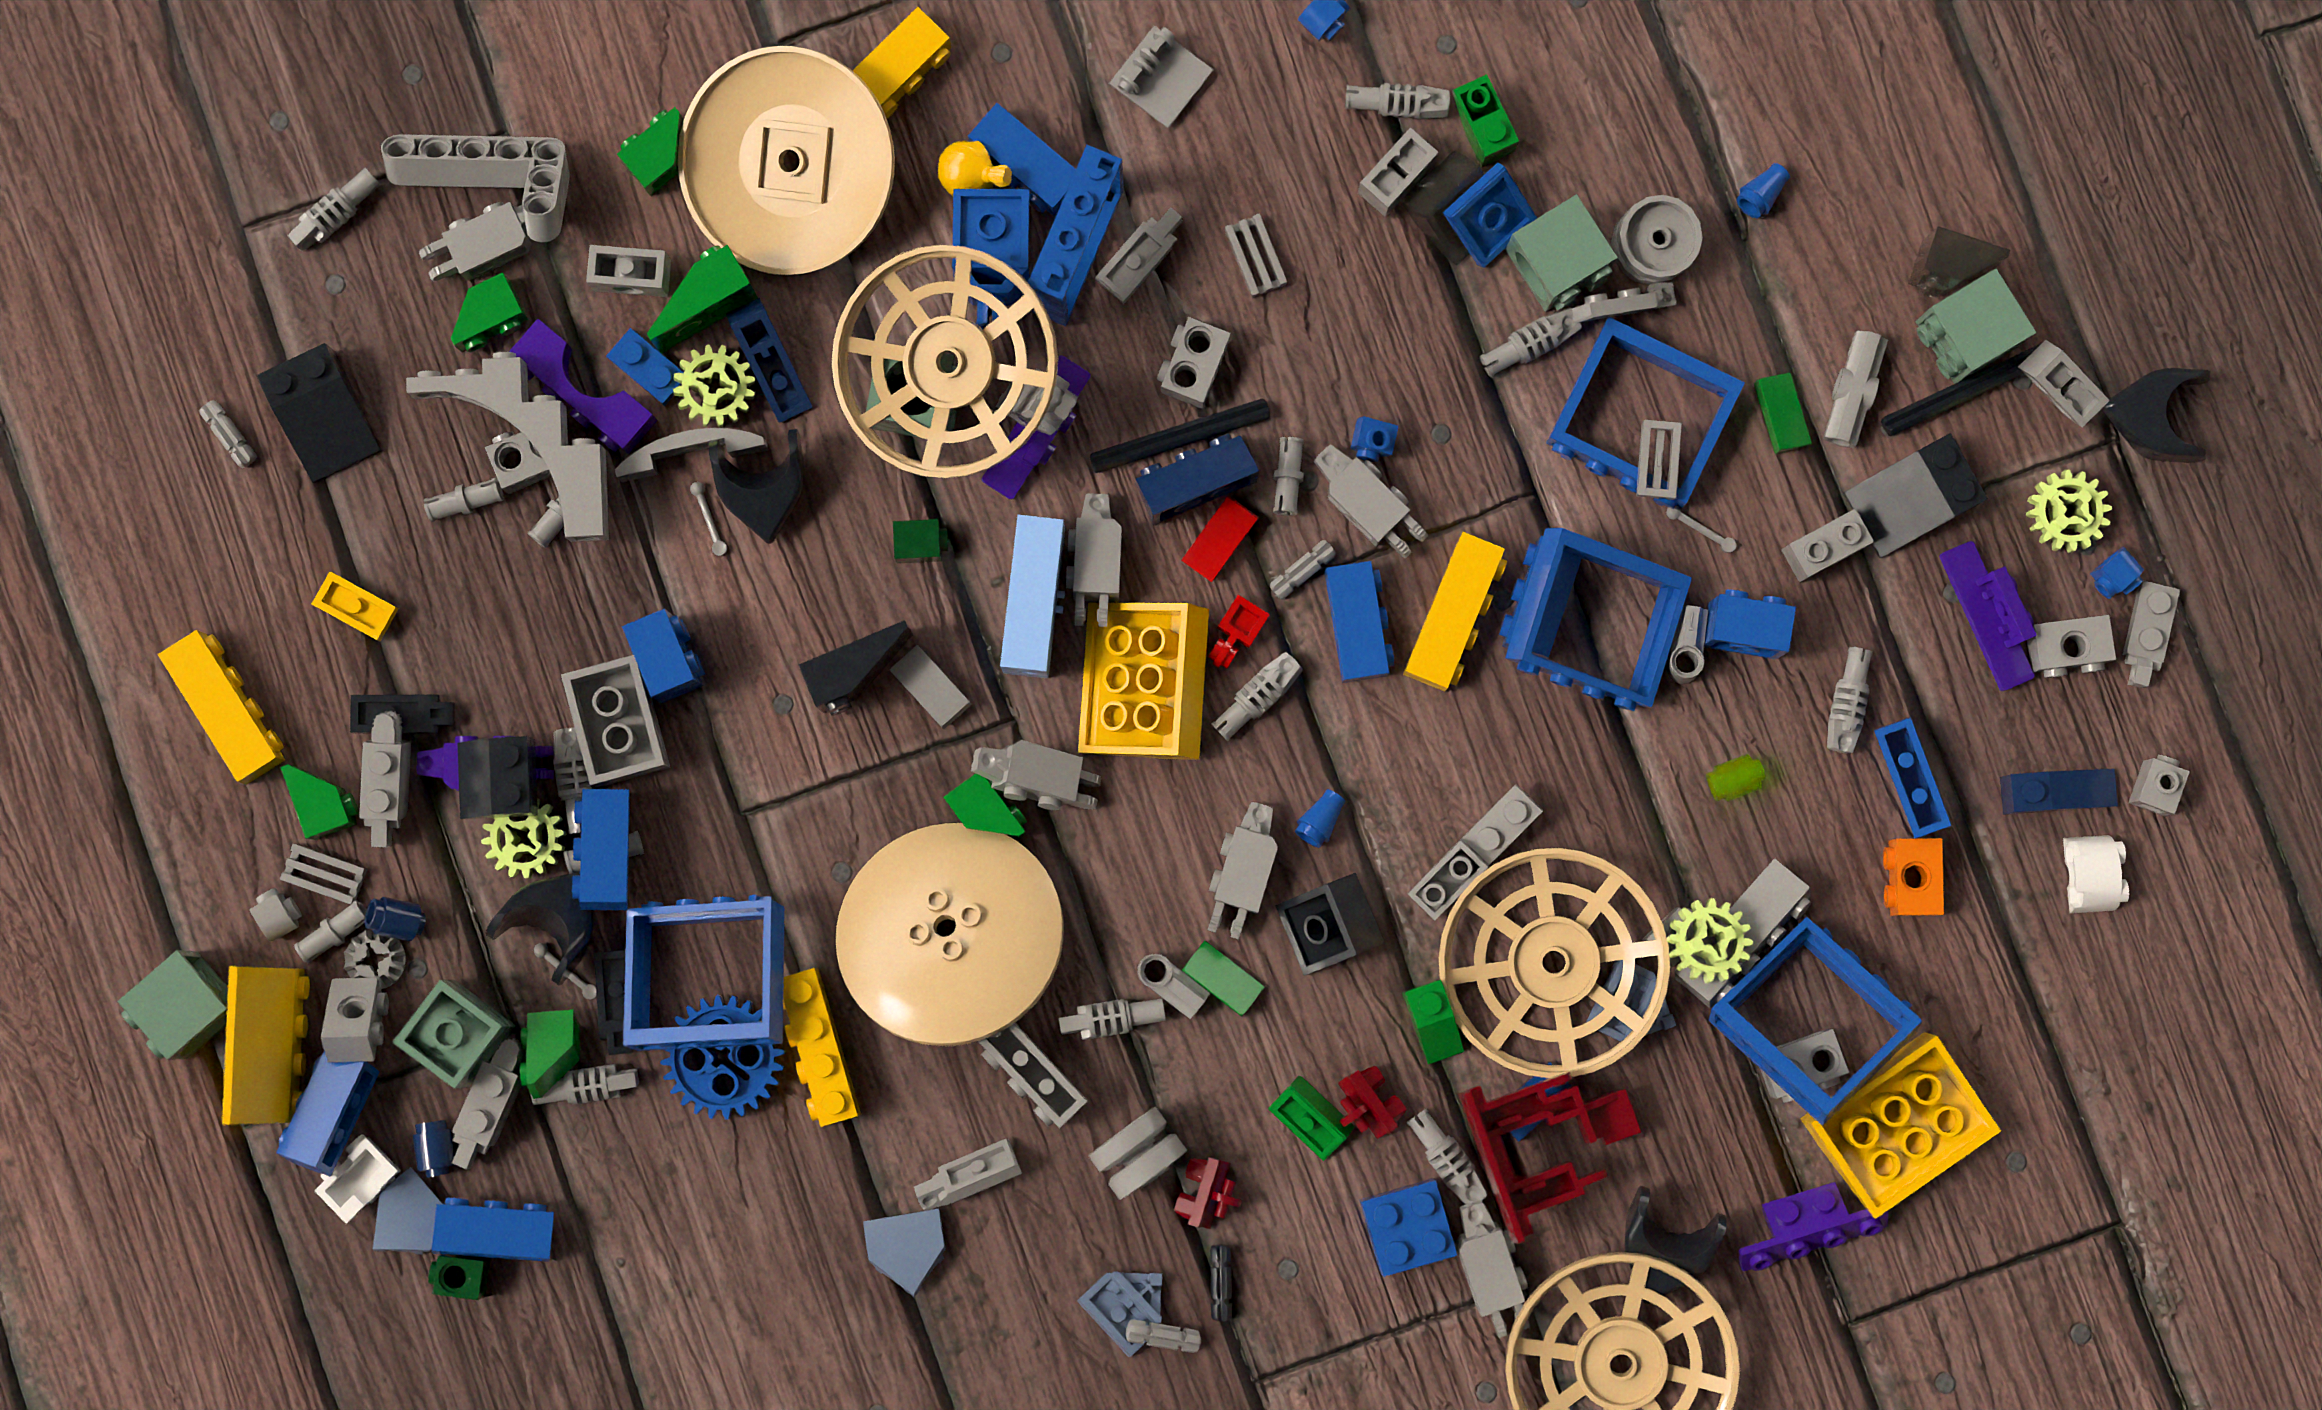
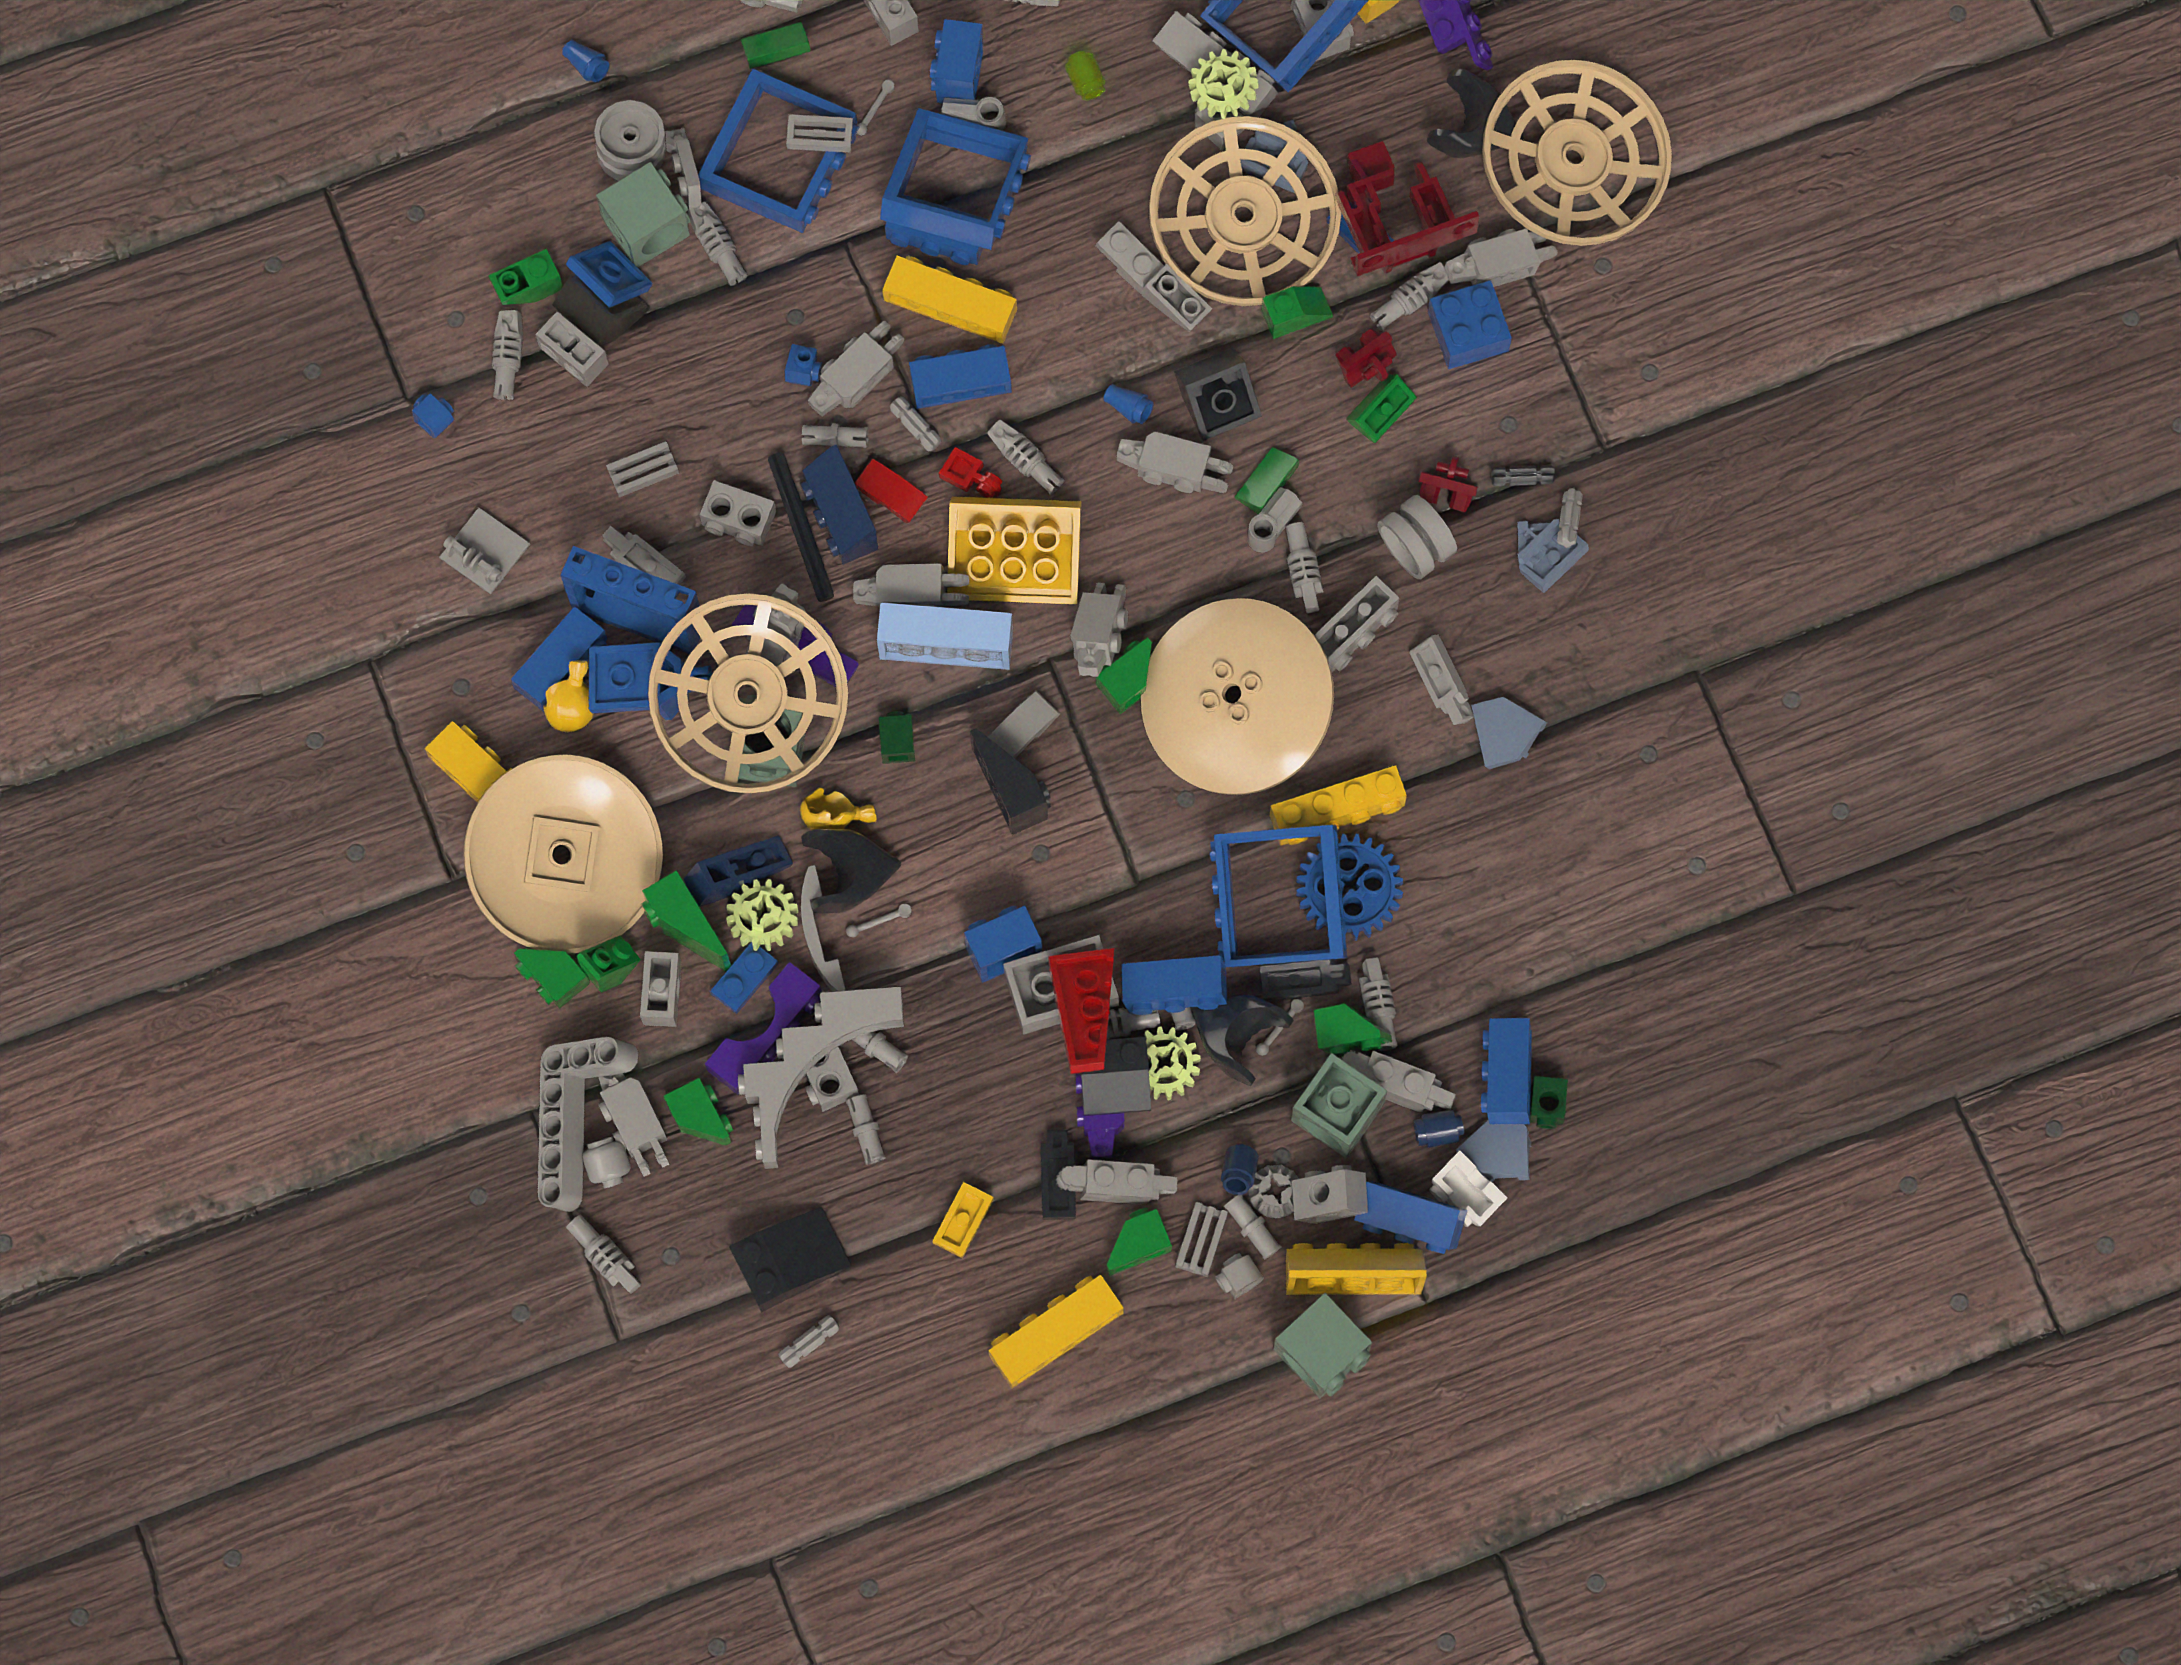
camera: 90 degrees left, 10 degrees down
(436, 210) = (606, 1162): none -> light grey head
(577, 742) = (1083, 1002): none -> red wing
(657, 210) = (608, 963): none -> green slope
(832, 466) = (833, 811): none -> yellow hair

